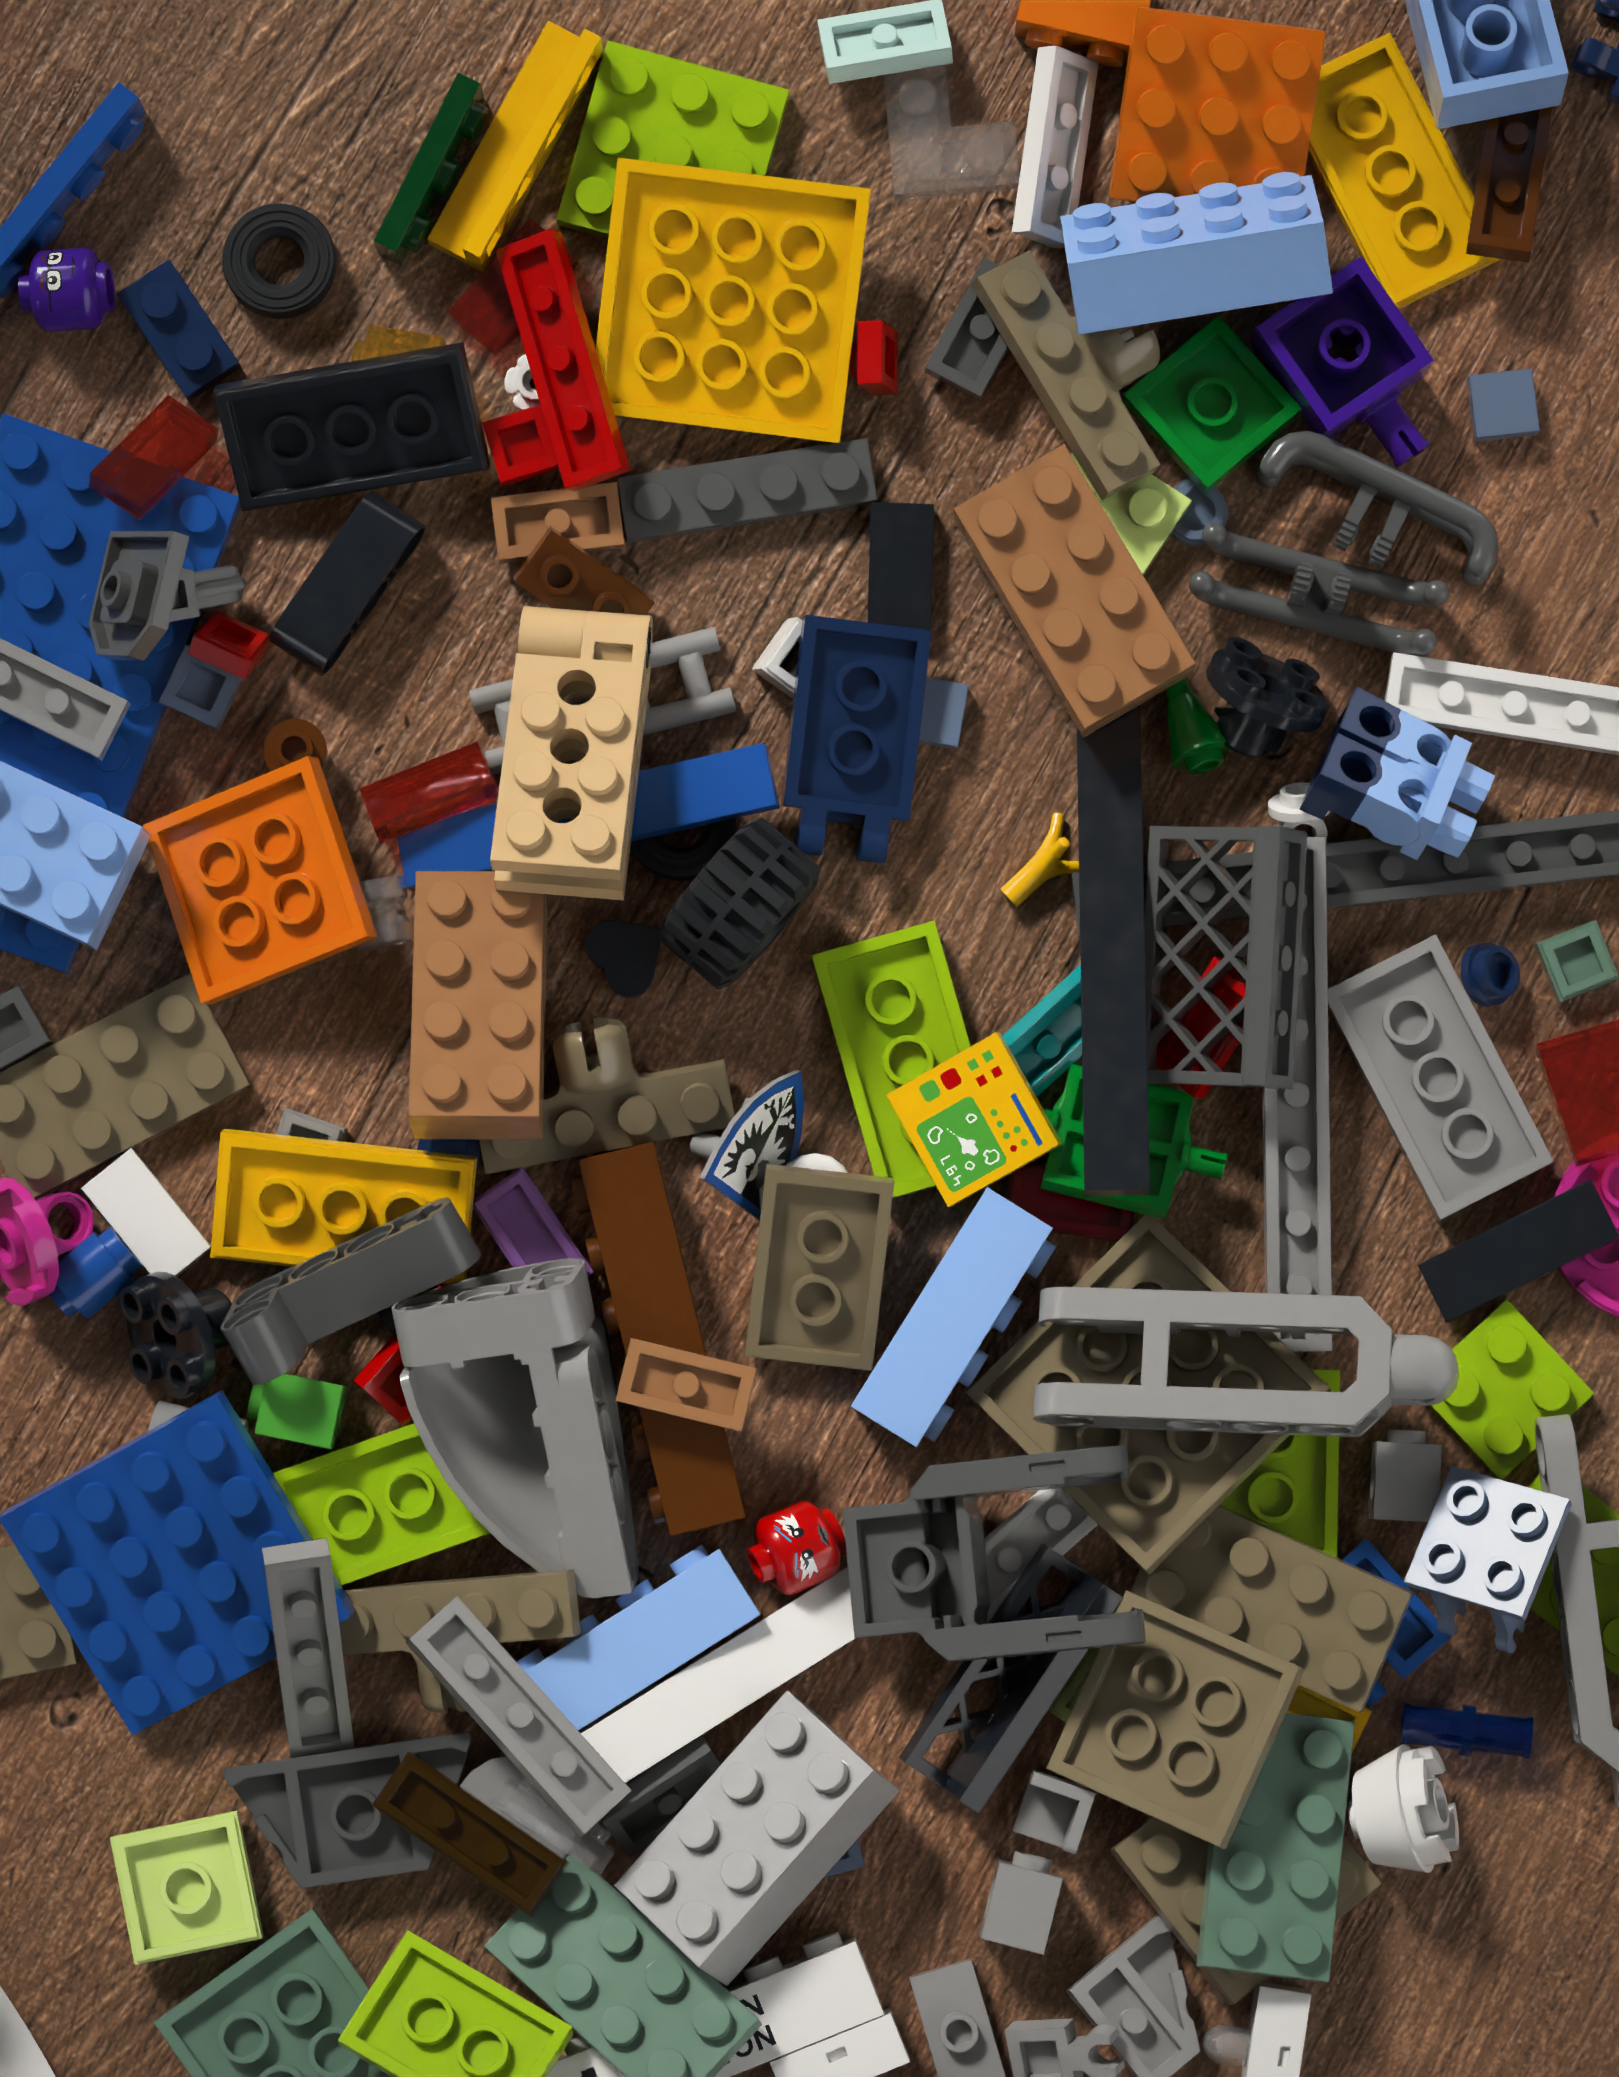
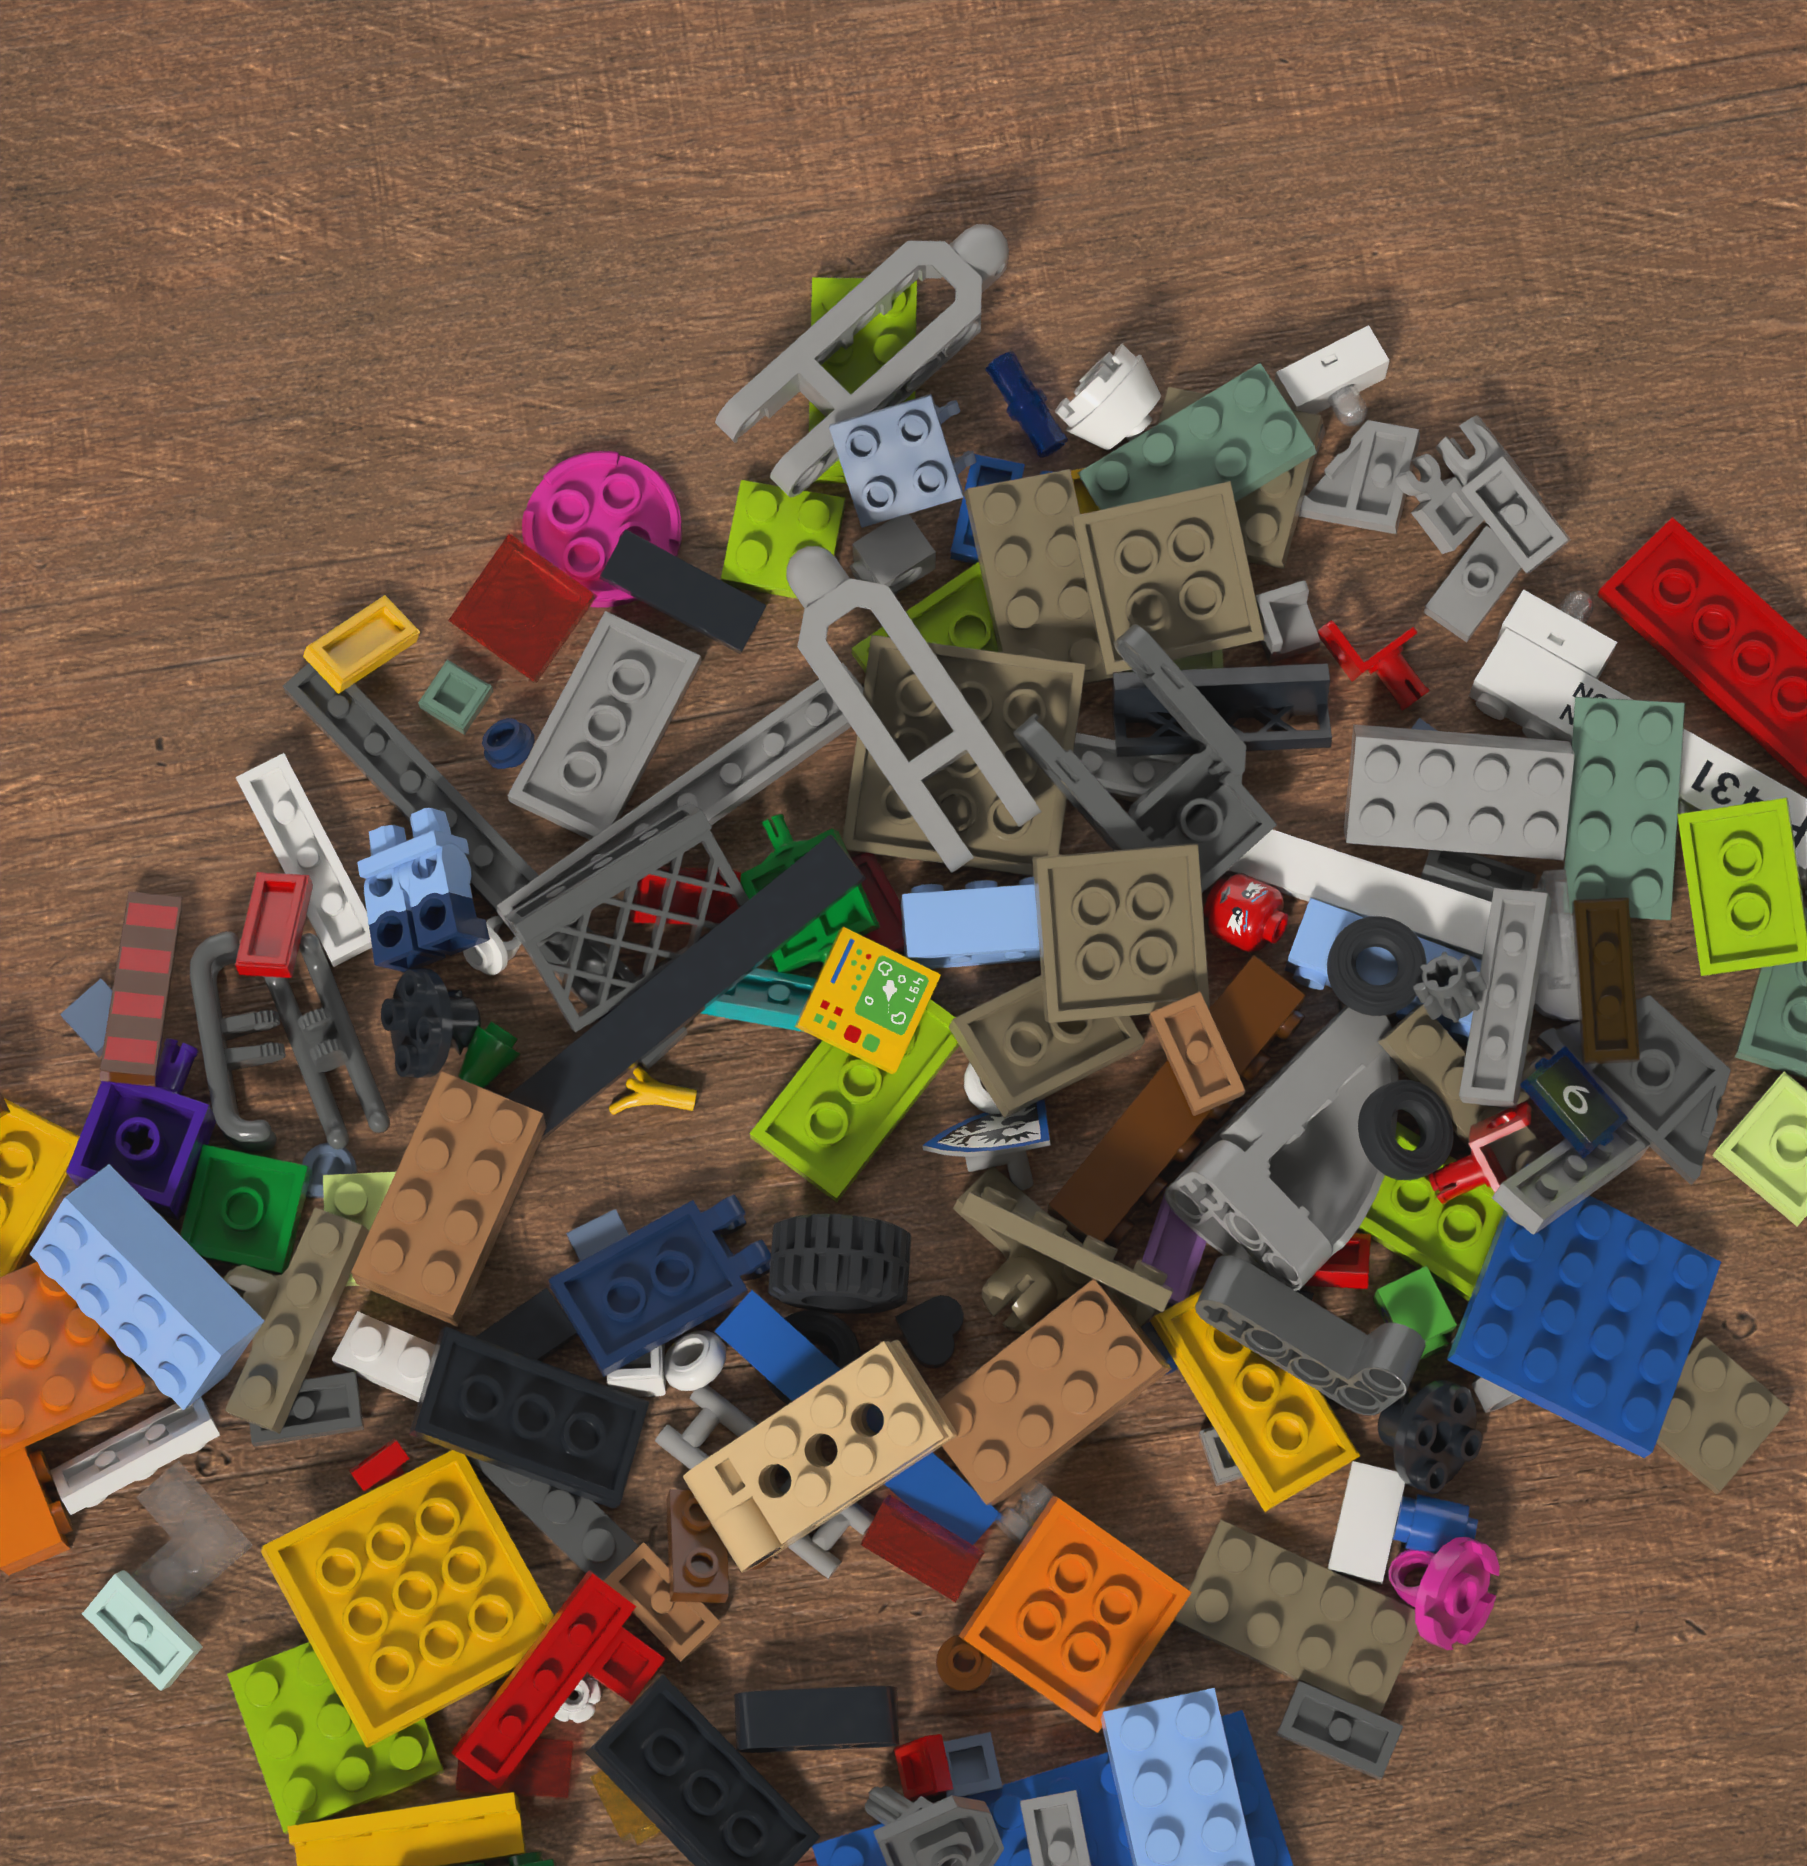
camera: 130 degrees left, 10 degrees down
(375, 1707) = (1574, 1101): none -> piece
(383, 1576) = (1481, 1165): none -> red bracket
(488, 1496) = (1378, 1138): none -> black tyre
(580, 1664) = (1450, 987): none -> dark grey gear
(590, 1112) = (1090, 1258): none -> dark tan plate
(635, 1661) = (1383, 933): none -> black tyre
(742, 717) = (697, 1344): none -> white piece
(813, 518) = (529, 1417): none -> black tile
(856, 1402) = (1120, 931): none -> dark tan plate
(939, 456) = (385, 1356): none -> white plate
(942, 1876) = (1386, 663): none -> red bracket
(1021, 1903) = (1364, 599): light grey brick -> none
(1464, 619) = (274, 925): none -> red tile
(1494, 453) = (141, 989): none -> tile

